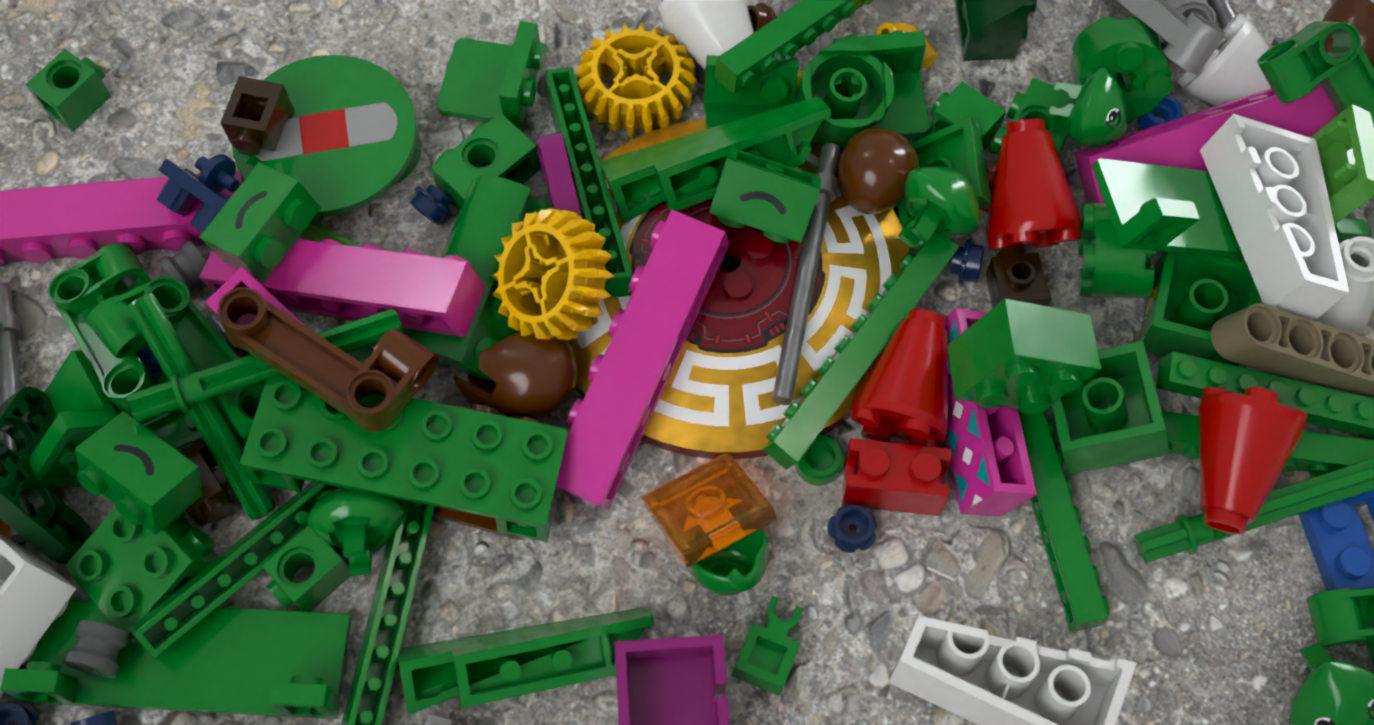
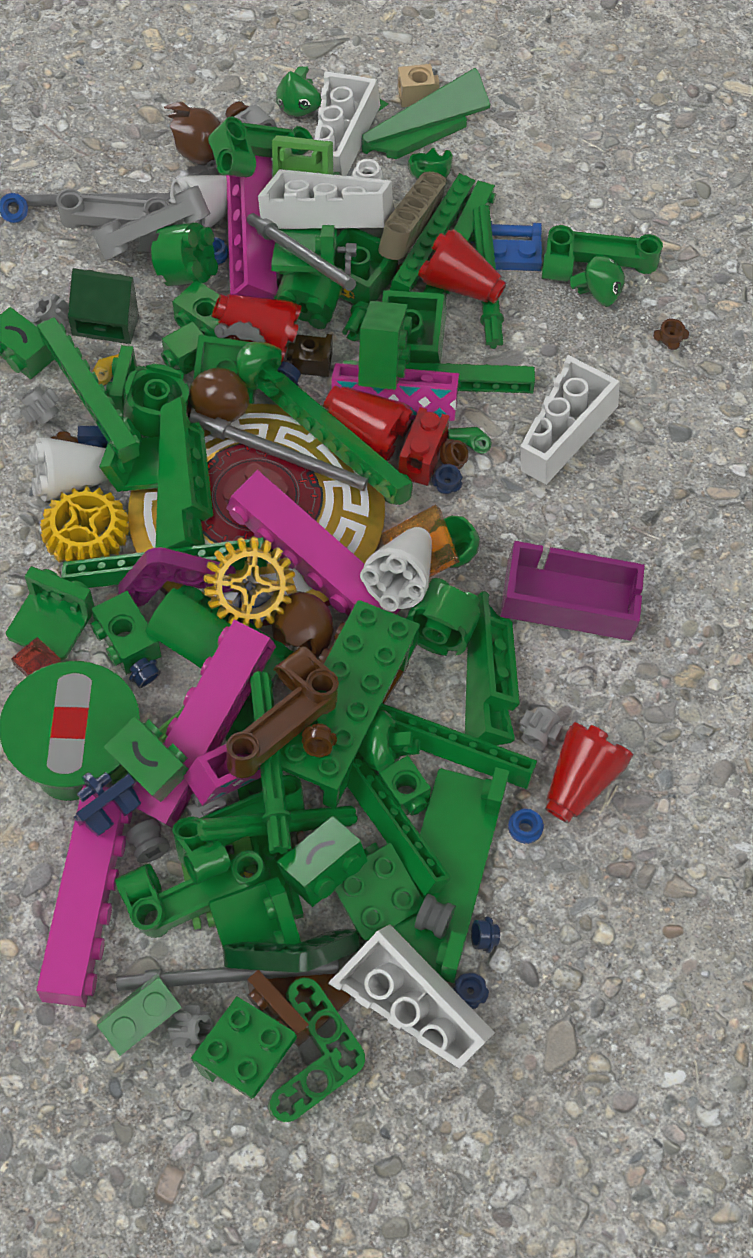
camera: 80 degrees left, 5 degrees down
(256, 115) = (44, 747): dark brown brick -> none
(296, 414) = (318, 740): none -> reddish brown plate
(421, 76) = (34, 657): none -> clear red tile
(581, 562) = (445, 618): none -> green brick
(634, 476) = (400, 570): none -> white cone
(765, 196) = (227, 451): green brick -> none
(768, 652) = (507, 534): green plate -> none
(905, 536) = (453, 453): none -> reddish brown plate
(946, 549) = (472, 437): none -> green arm
(995, 164) = (242, 330): none -> flat silver piece
(1098, 112) = (216, 270): green piece -> none
(1114, 334) = (354, 323): none -> green pin
(1181, 152) = (270, 231): none -> flat silver bar
(1207, 279) = (350, 251): none -> flat silver piece

